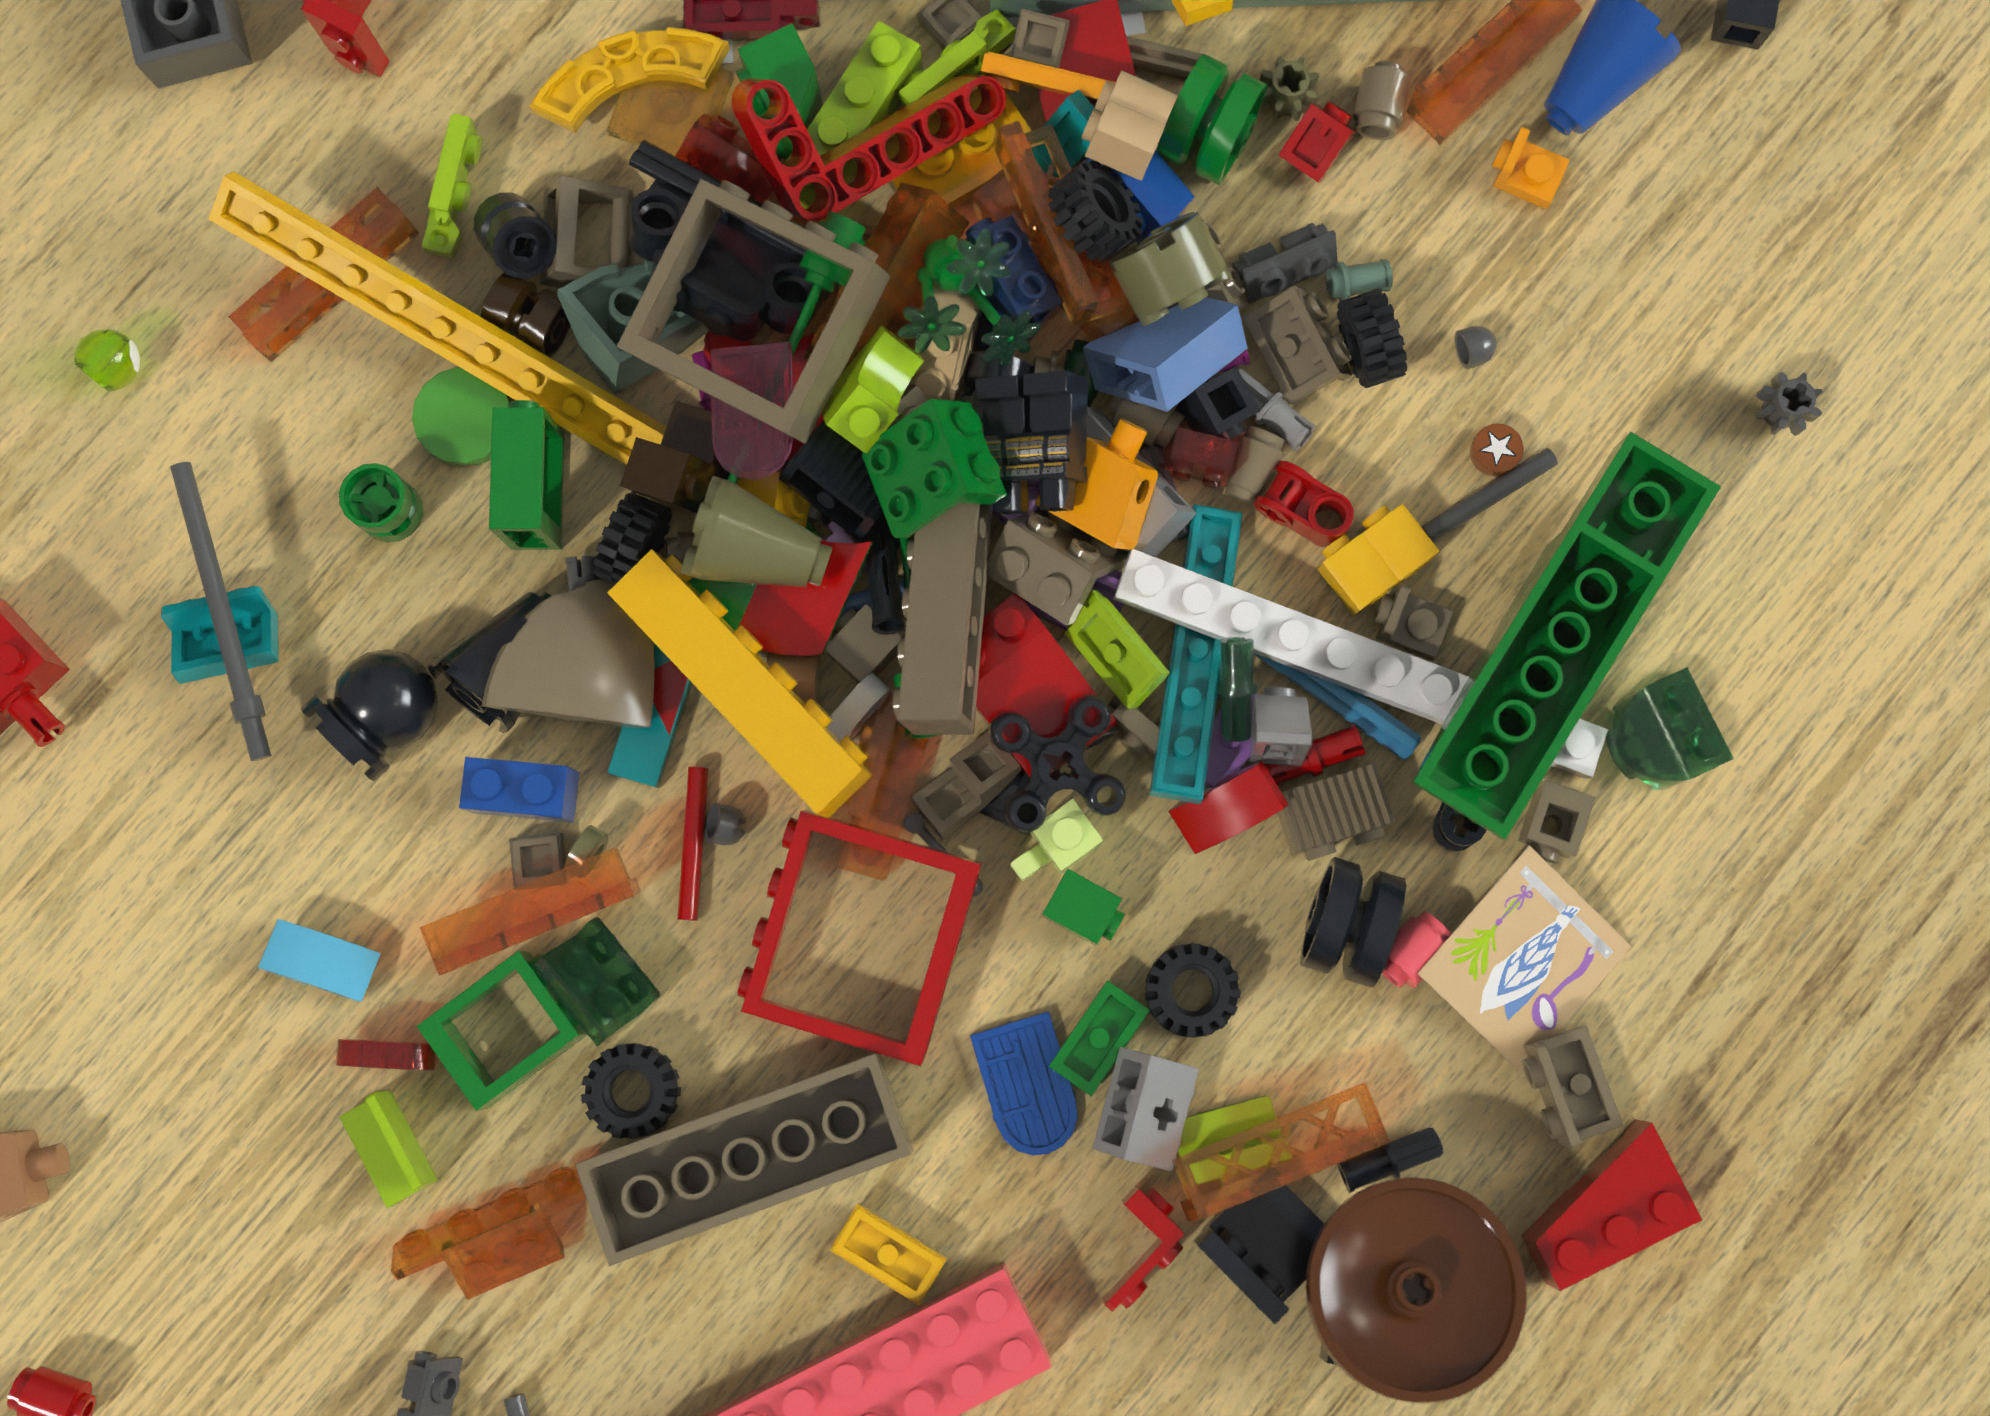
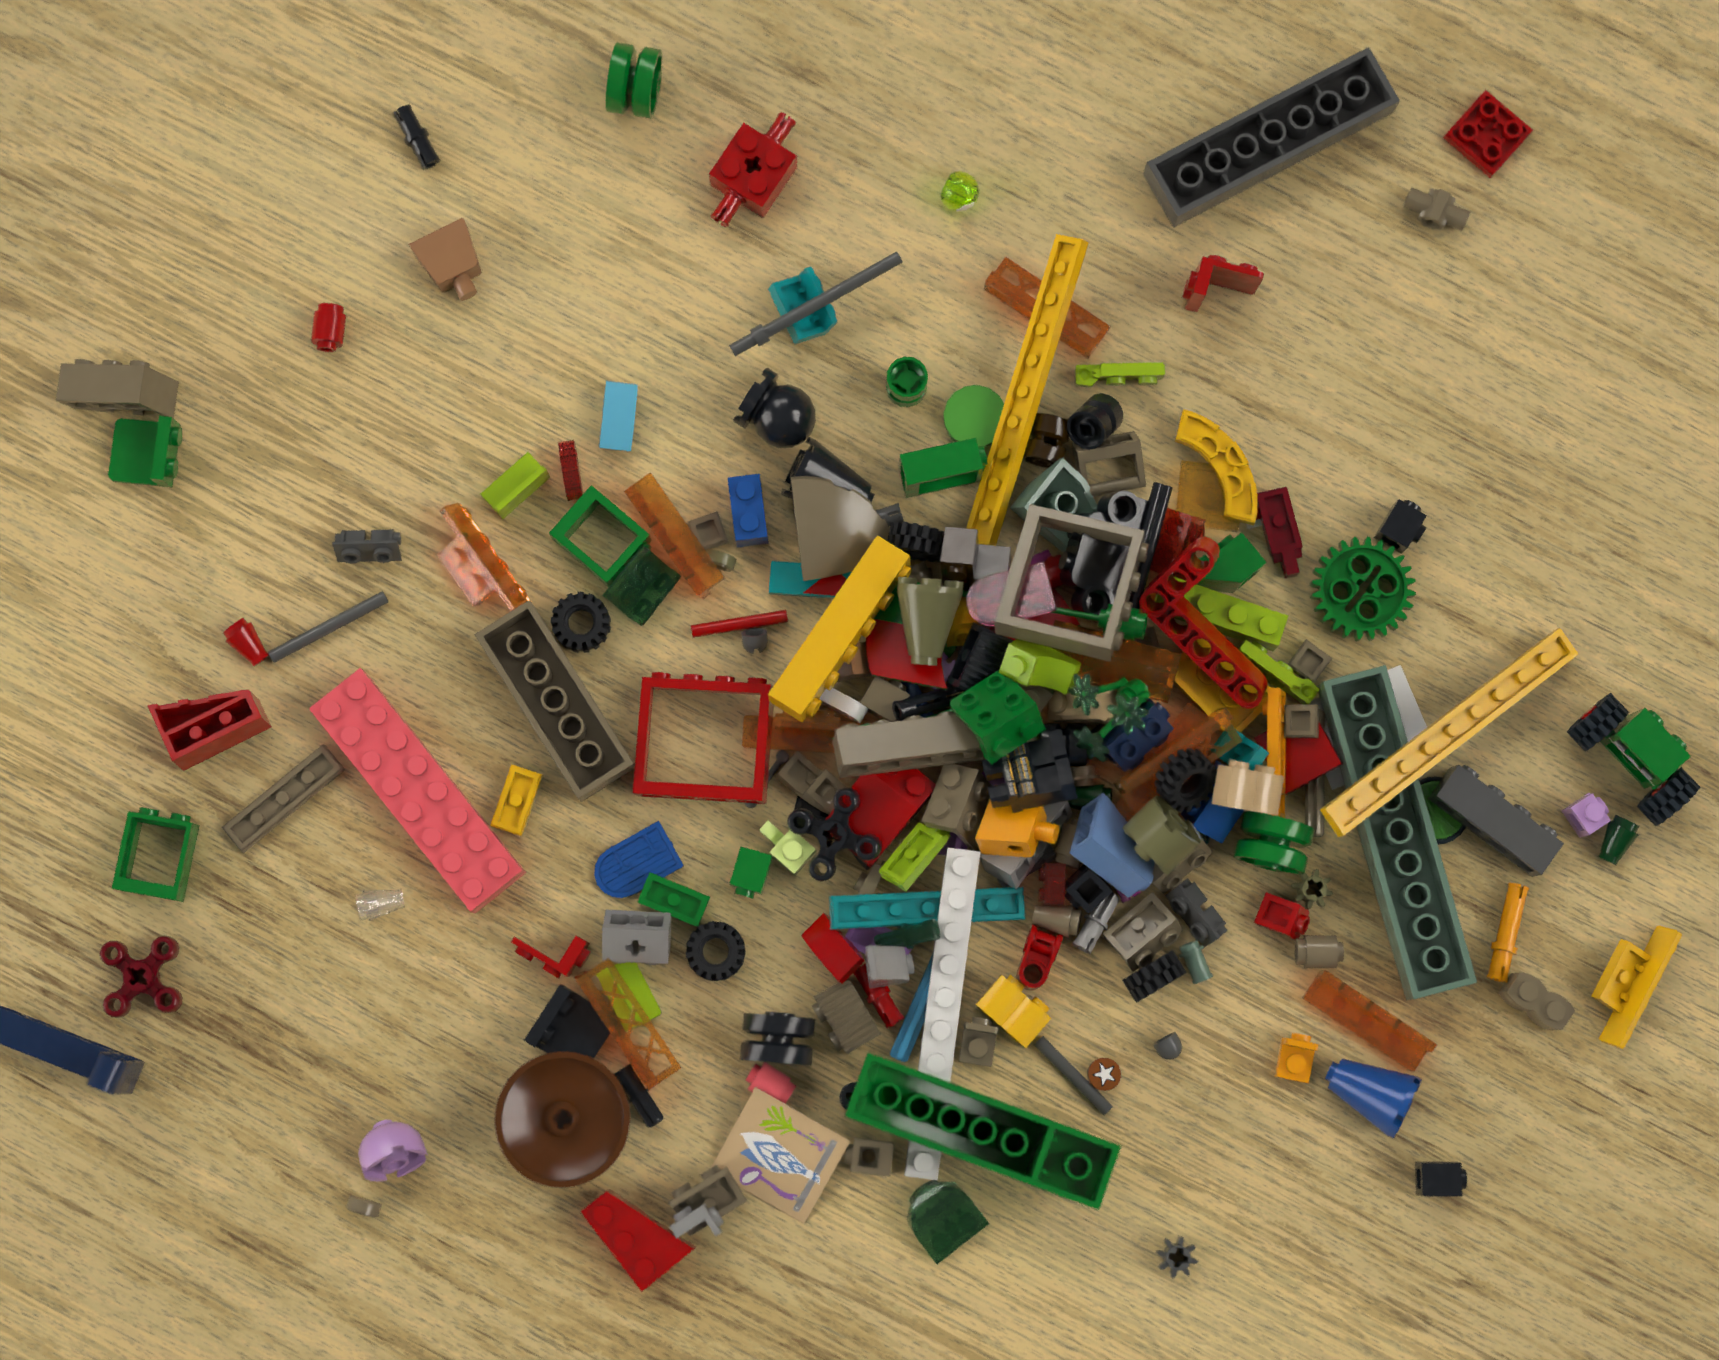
camera: 70 degrees right, 0 degrees up
(1603, 1118) = (690, 1218): none -> light grey bracket

